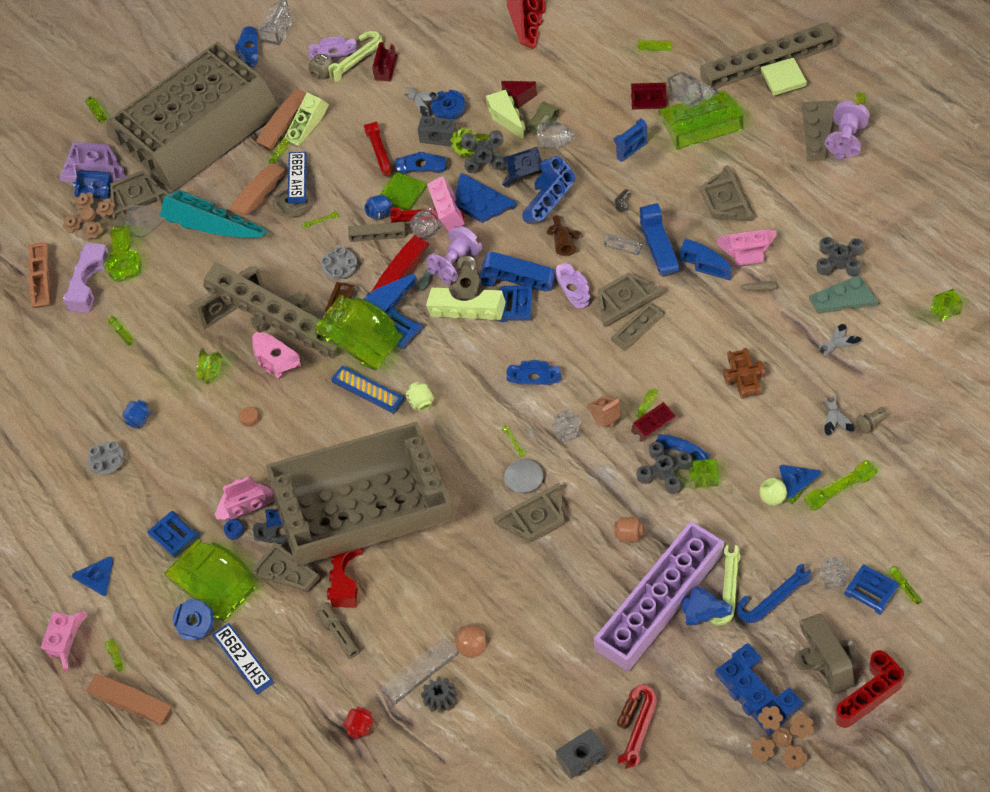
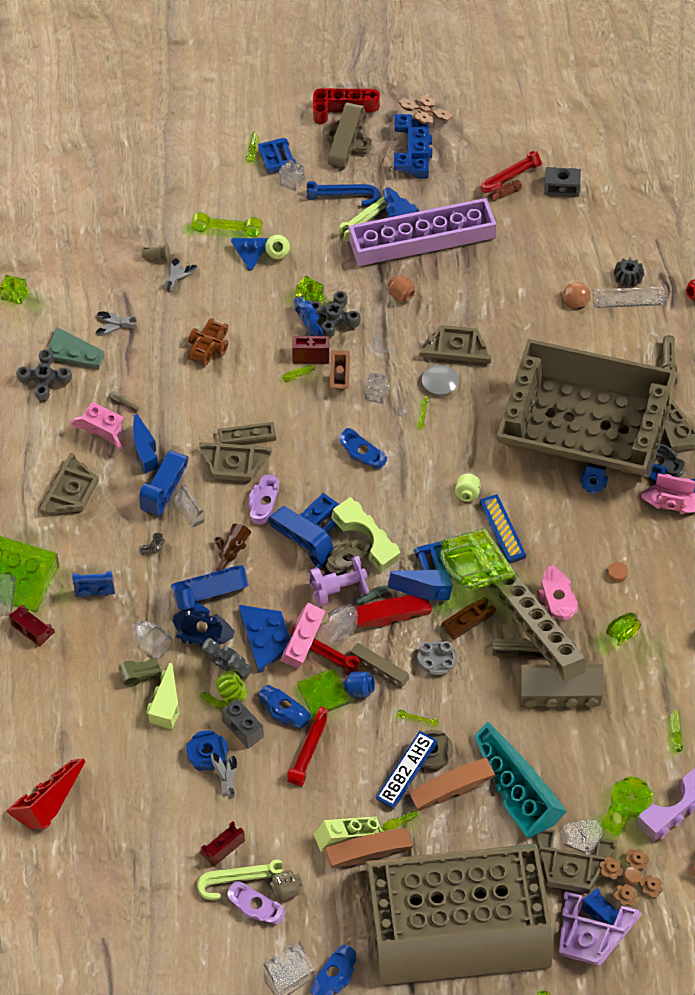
camera: 150 degrees left, 0 degrees up
(520, 91) = (134, 712): dark red slope -> none

